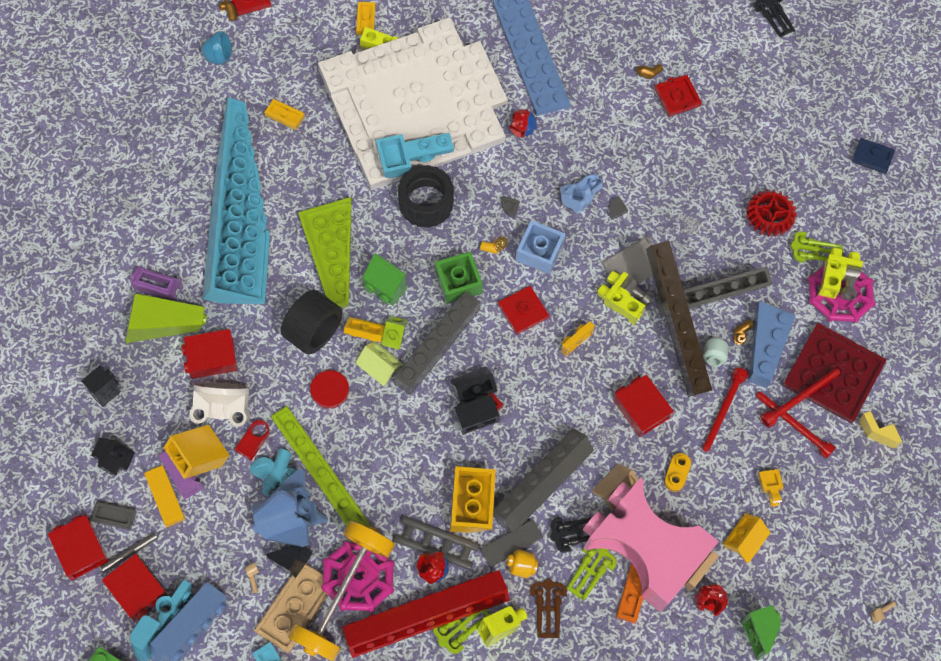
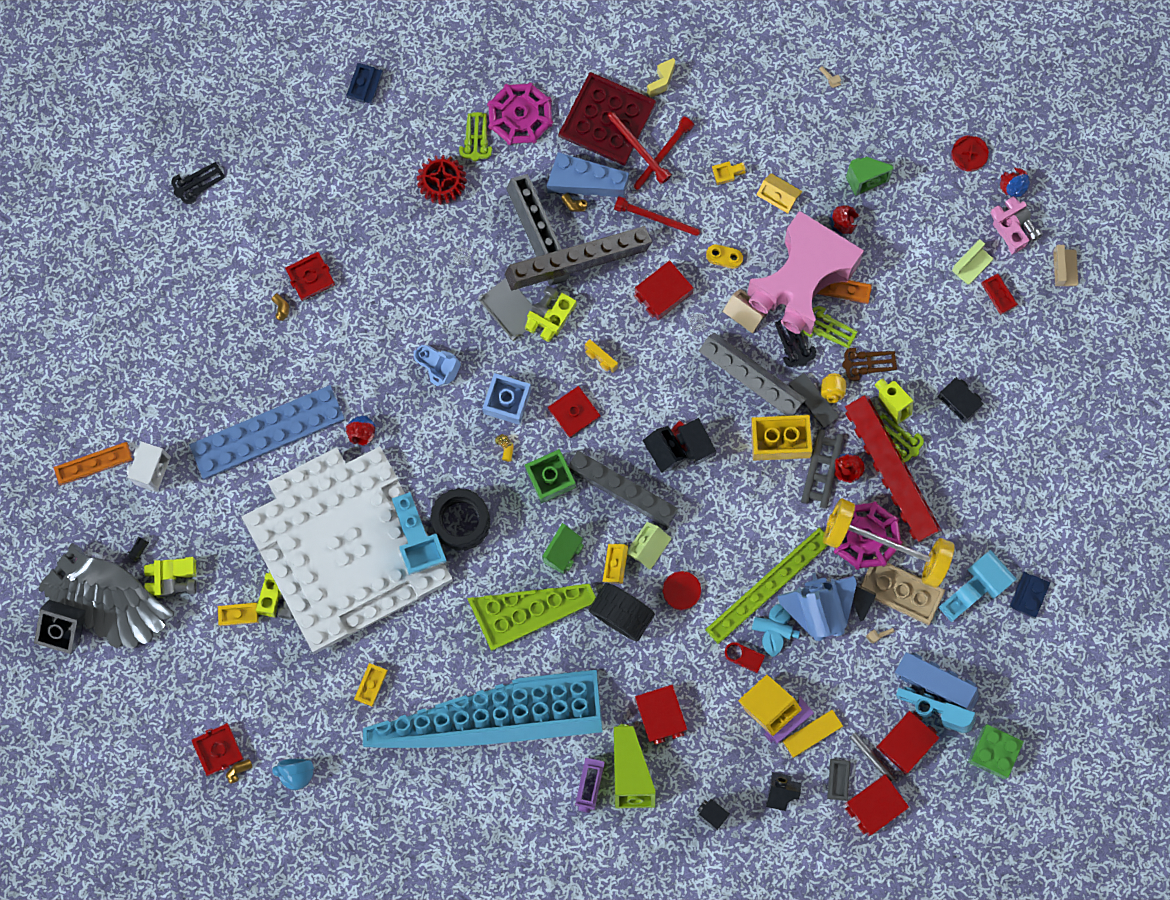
camera: 90 degrees left, 10 degrees up
(220, 402) = (712, 691): white piece -> none
(394, 332) = (613, 534): lime bracket -> none
(510, 206) = (457, 436): dark grey tile -> none
(617, 208) = (449, 329): dark grey tile -> none
(715, 352) = (600, 226): light aqua head -> none
(838, 269) = (504, 114): neon yellow hips -> none

